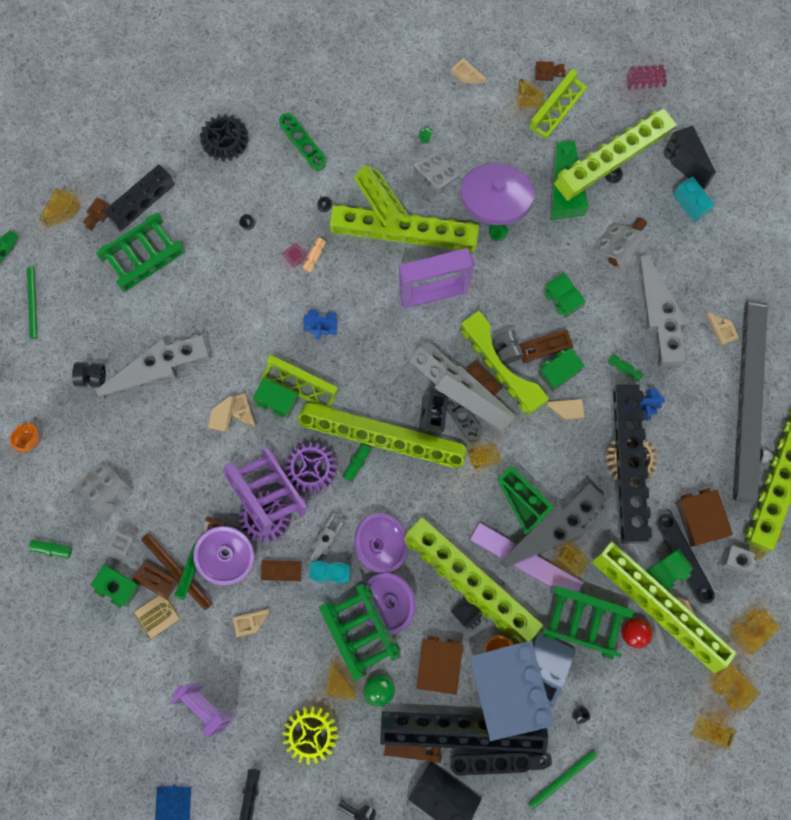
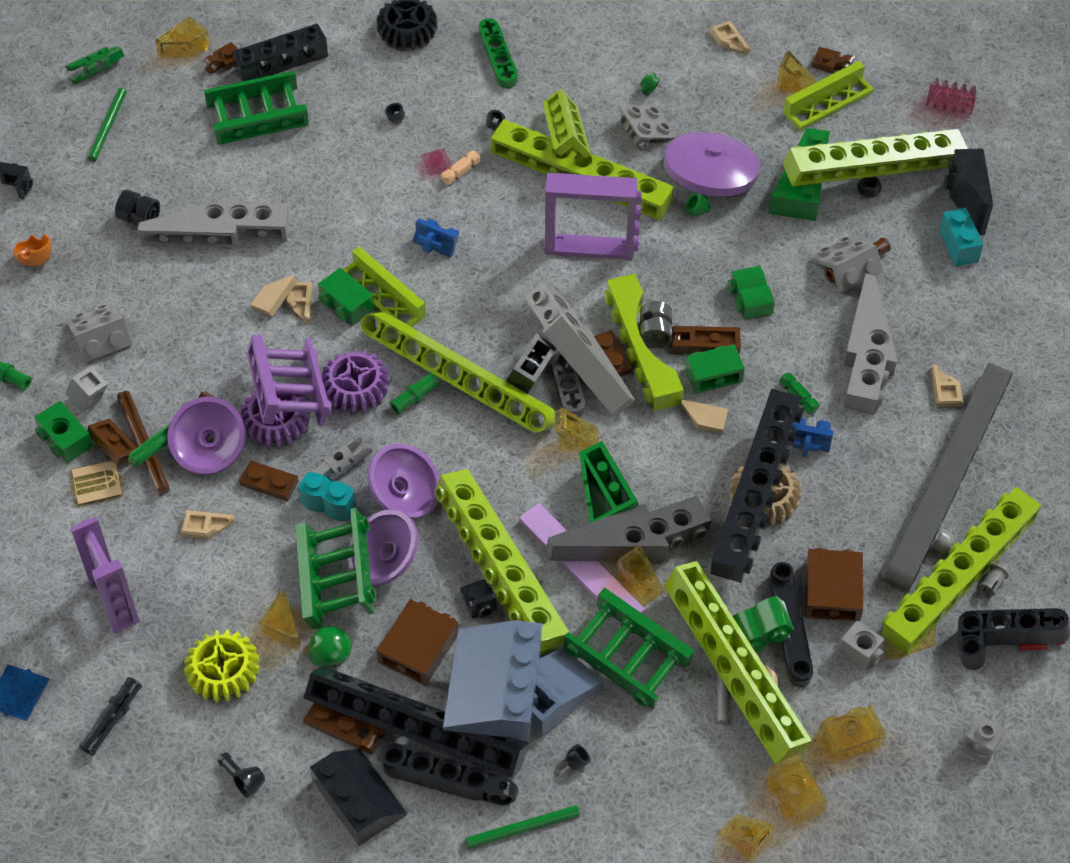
camera: 20 degrees right, 20 degrees down
(637, 633) = (693, 689): red hair -> none

